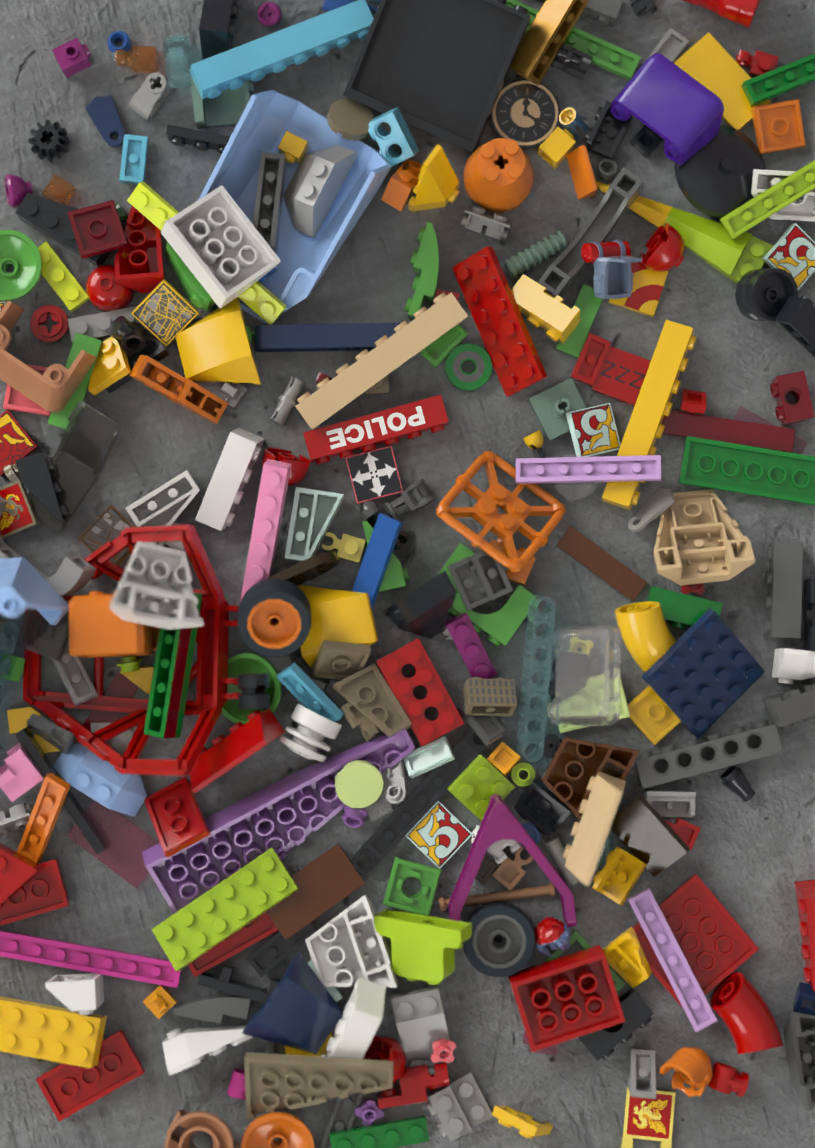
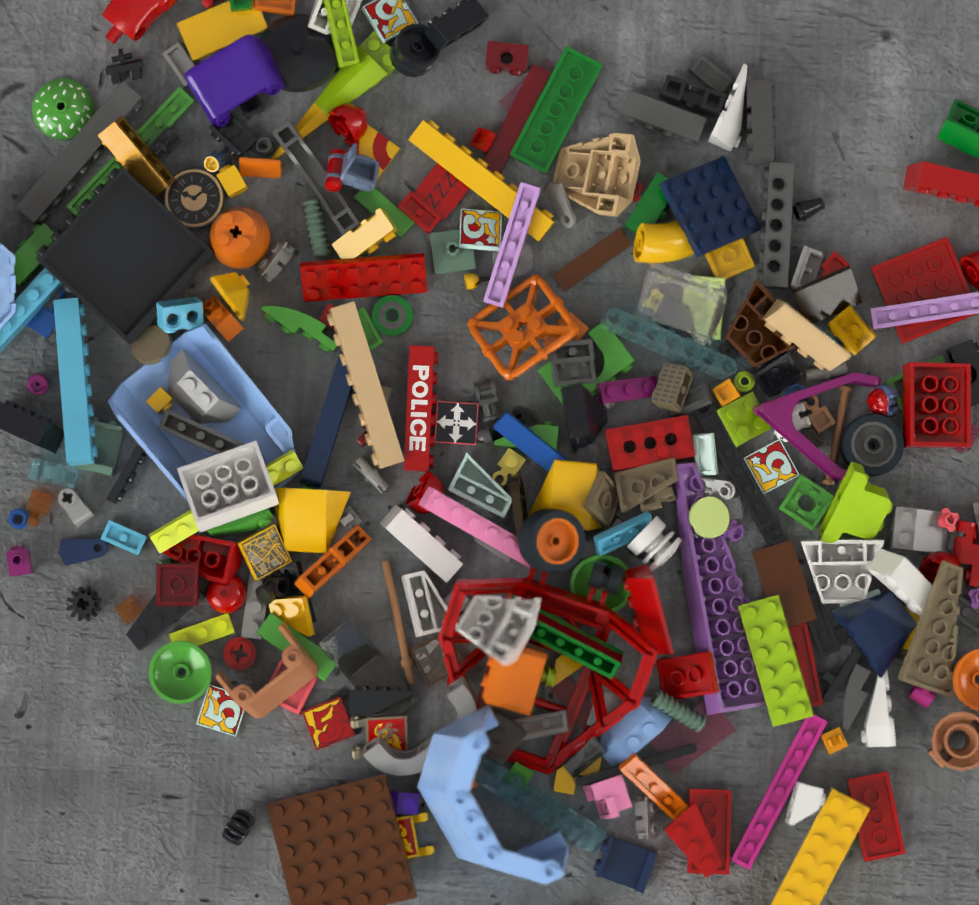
camera: 70 degrees left, 0 degrees up
(16, 189) = (117, 645): magenta brick -> none
(97, 506) = (406, 661): none -> medium nougat bar
(135, 818) = (678, 710): none -> sand green piece
(628, 958) = (921, 345): yellow wing -> none

